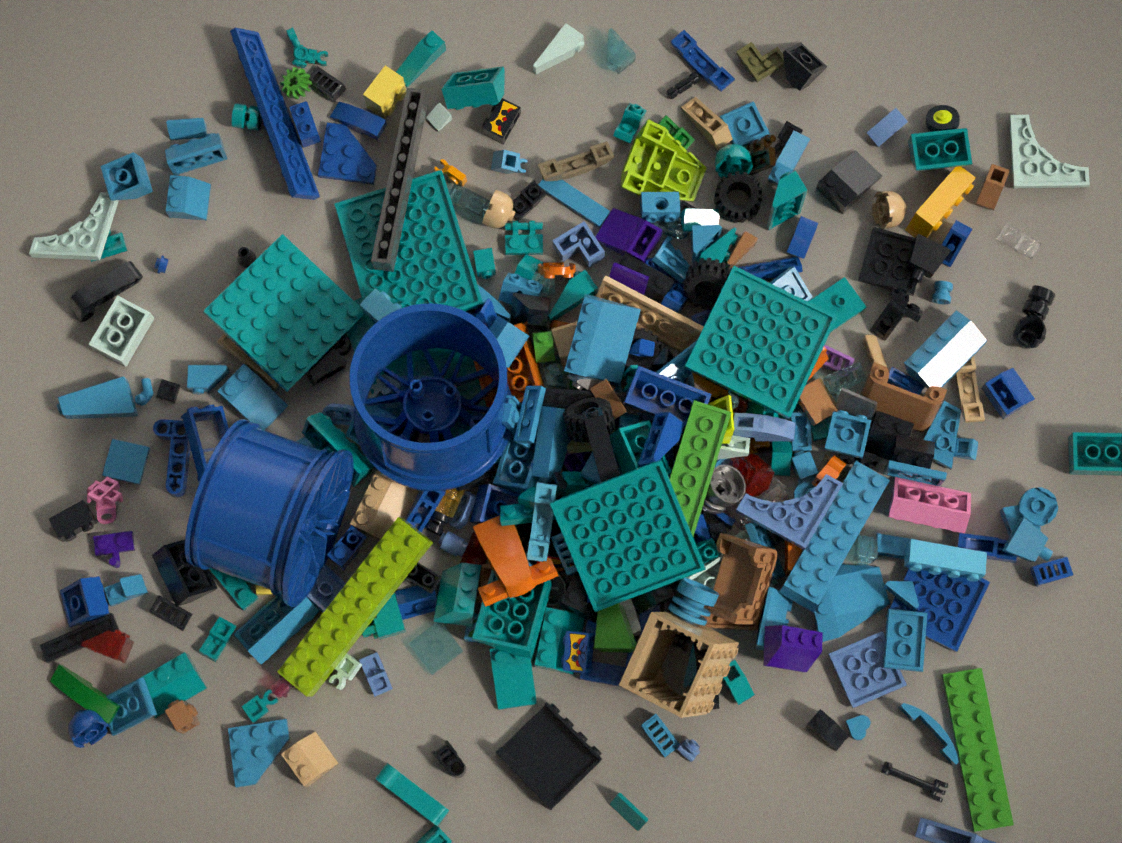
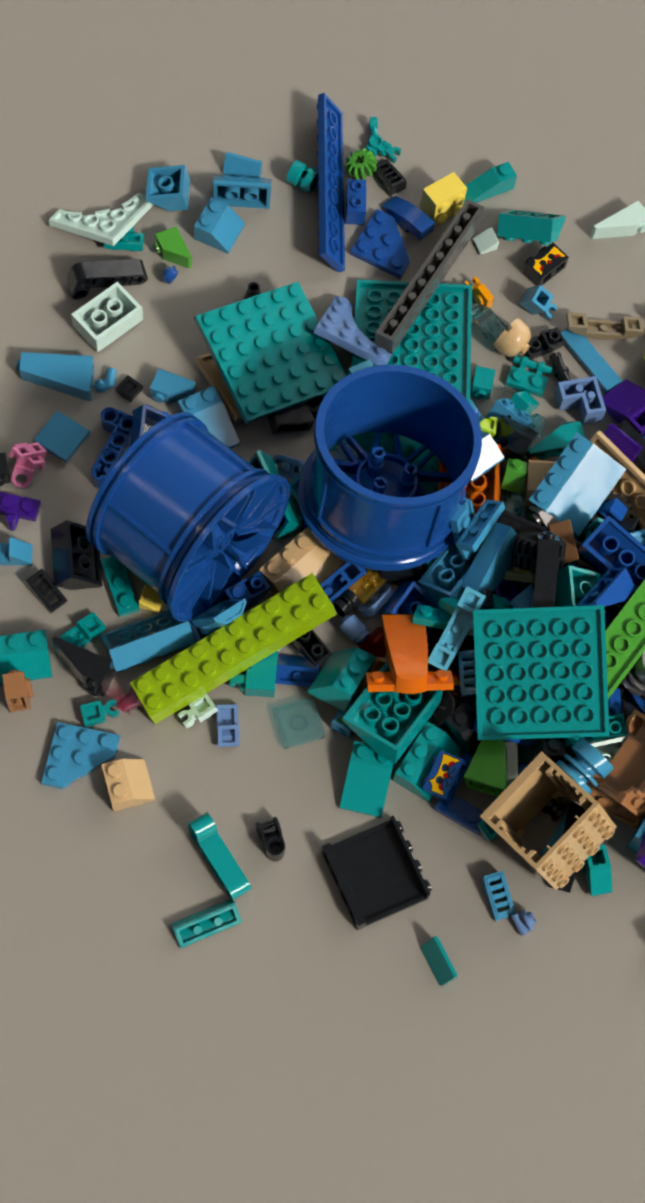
camera: 10 degrees right, 10 degrees down
(153, 236) = (172, 247): none -> bright green slope
(239, 673) = (90, 669): none -> black slope
(331, 581) = (219, 615): none -> dark azure slope
(340, 267) = (340, 328): none -> medium blue plate
(504, 308) = (489, 425): none -> lime tile
(551, 222) = (560, 370): none -> black pin
(551, 269) = (558, 413): orange plate -> none

